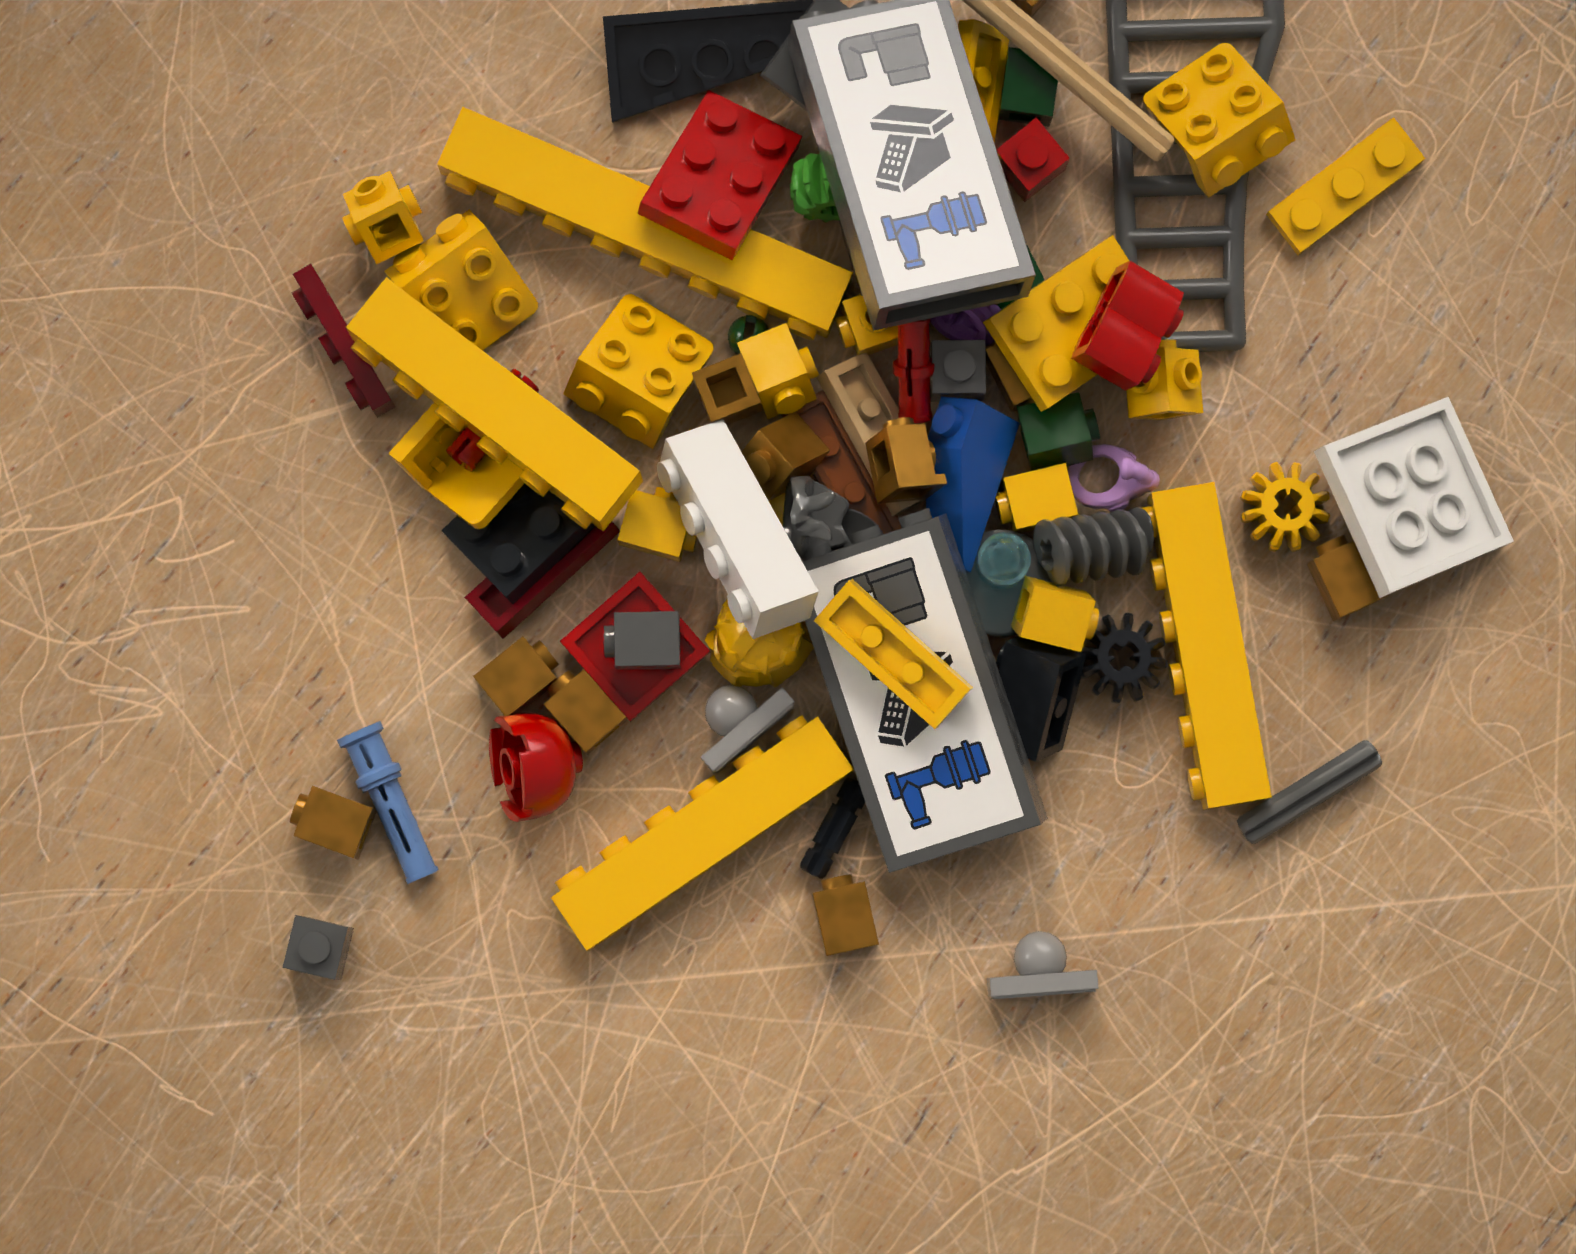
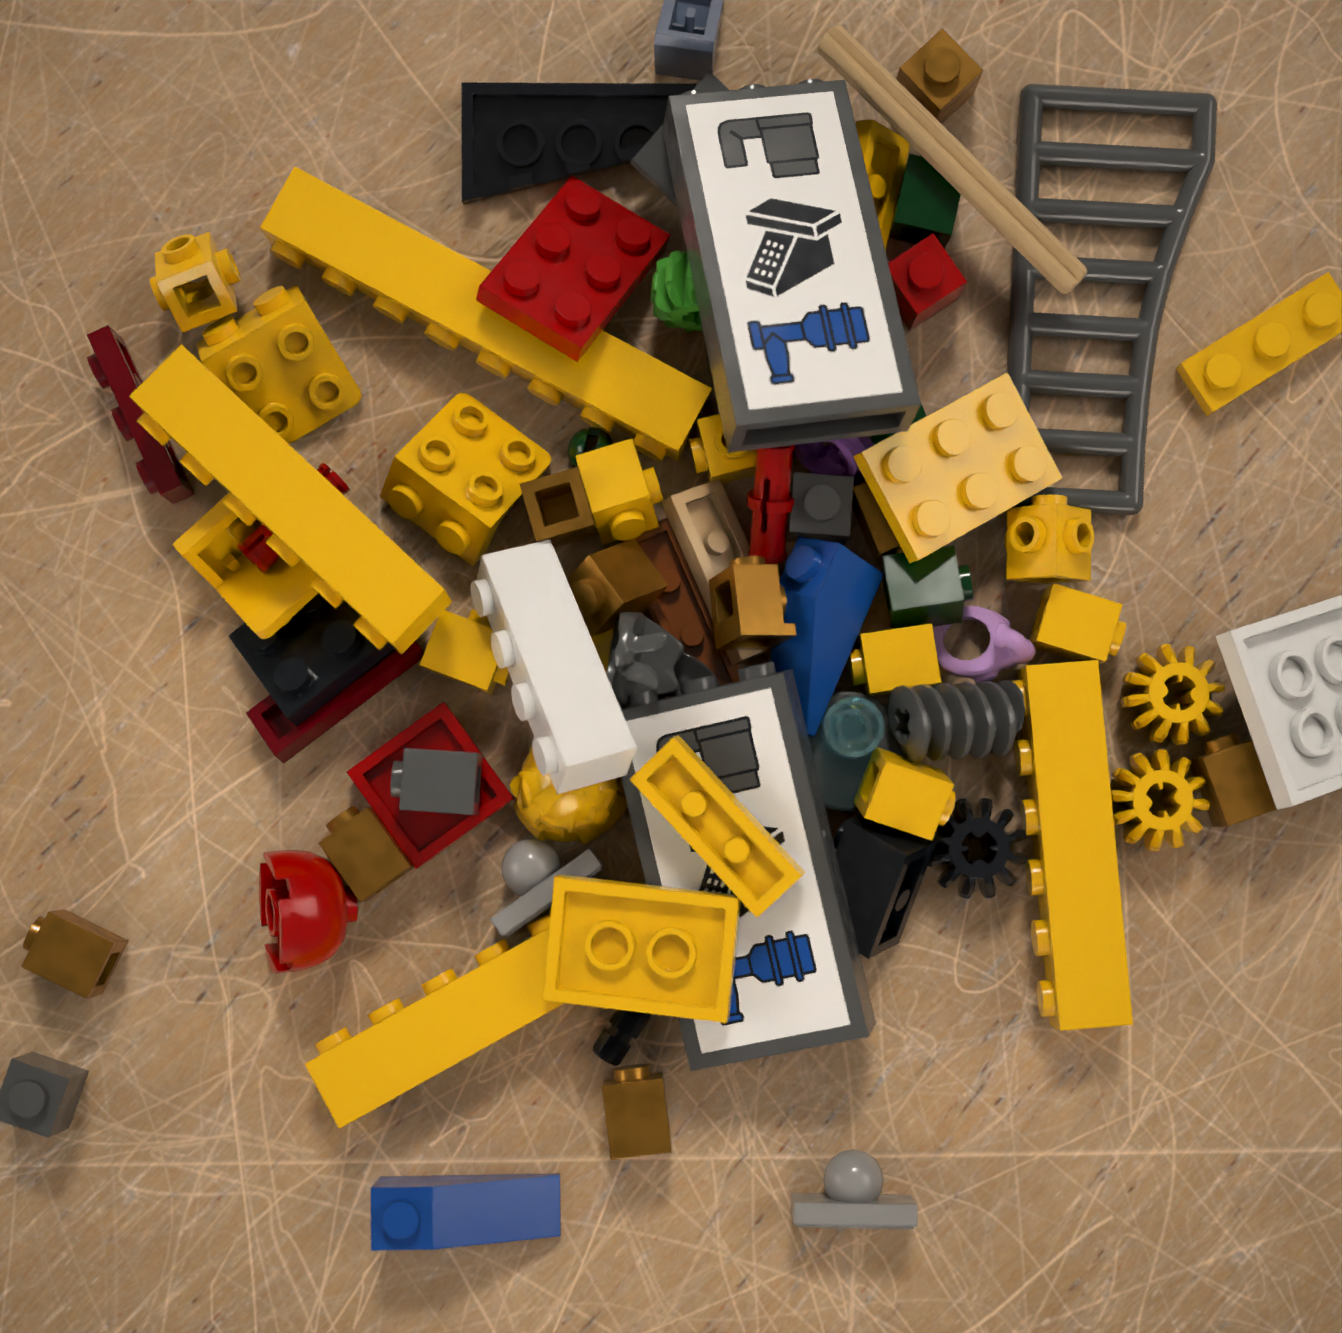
camera: 10 degrees right, 0 degrees up
(379, 778) = (130, 906): medium blue pin -> none
(518, 676) = (295, 807): pearl gold brick -> none
(703, 1015) = (463, 1210): none -> blue slope
(837, 766) = (641, 948): none -> yellow plate
(1129, 326) = (1019, 475): red brick -> none
(1195, 453) = (1077, 625): none -> yellow brick
(1221, 117) = (1140, 253): yellow bracket -> none
(1296, 598) = (1176, 795): none -> yellow gear
(1309, 792) = (1173, 1017): dark grey axle -> none

